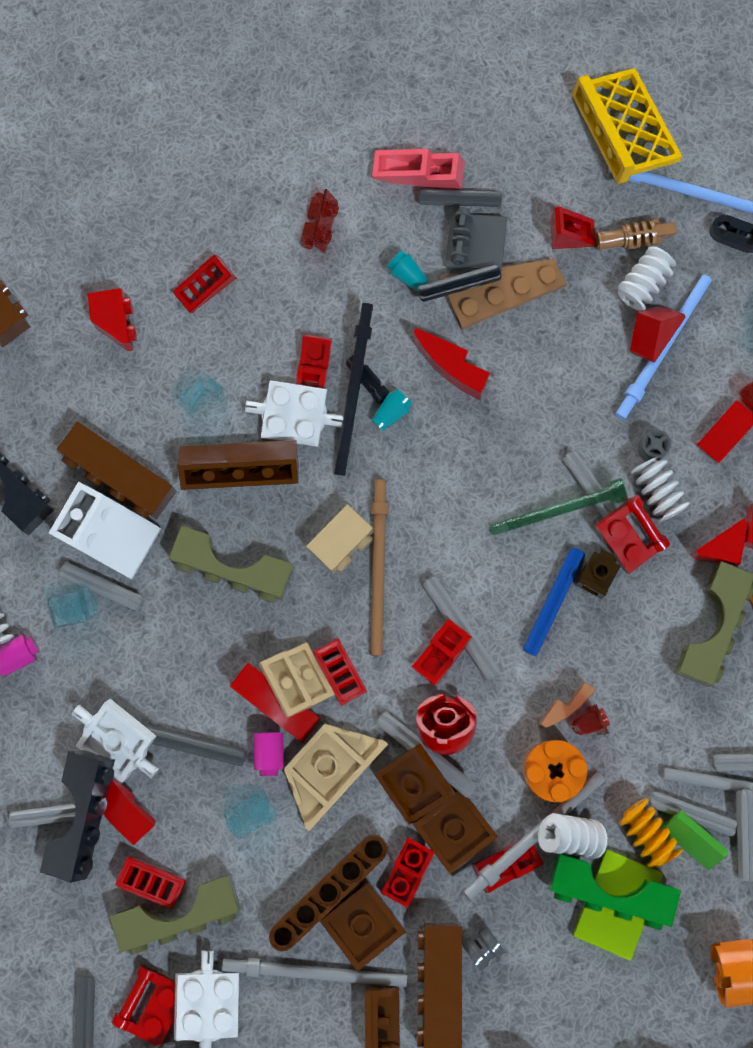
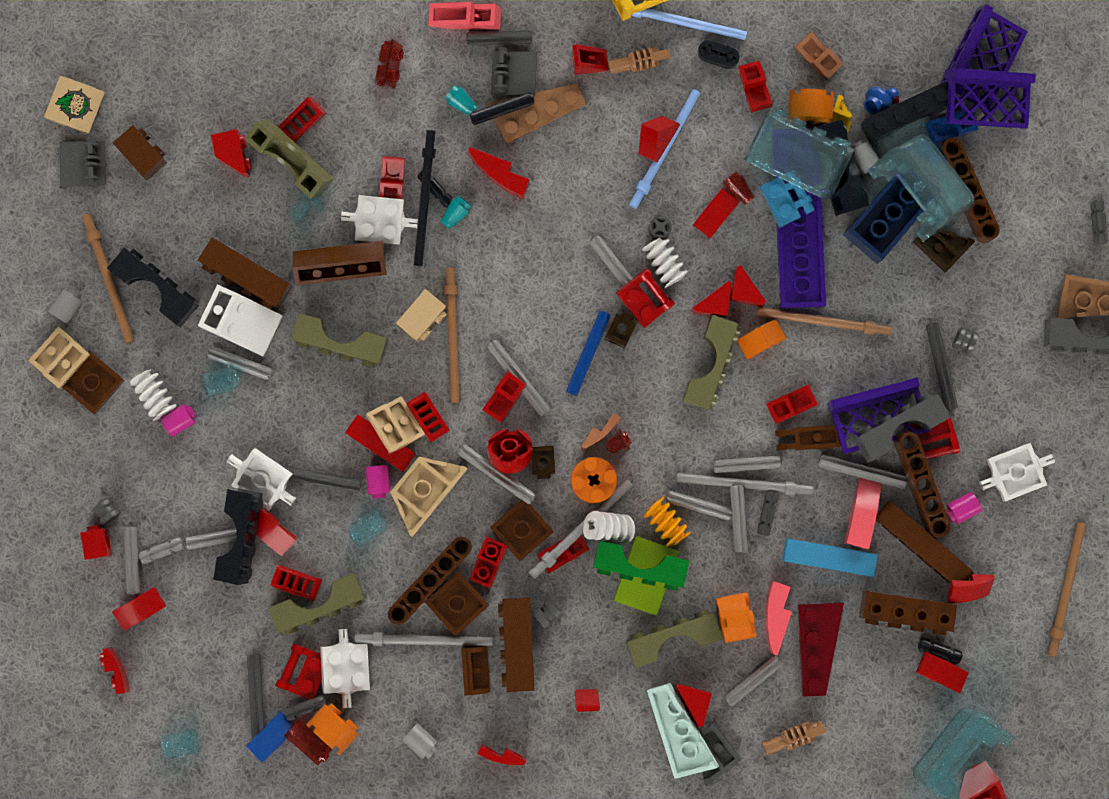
camera: 15 degrees left, 5 degrees up
(205, 348) = (275, 143): none -> olive arch
(414, 784) = (489, 496): reddish brown plate -> none
(492, 729) = (543, 452): none -> dark brown brick
(613, 492) = (629, 267): clear green piece -> none
(614, 1004) = (645, 647): none -> olive arch
(645, 277) = (647, 95): white piece -> none
(695, 840) = (701, 524): bright green tile -> none

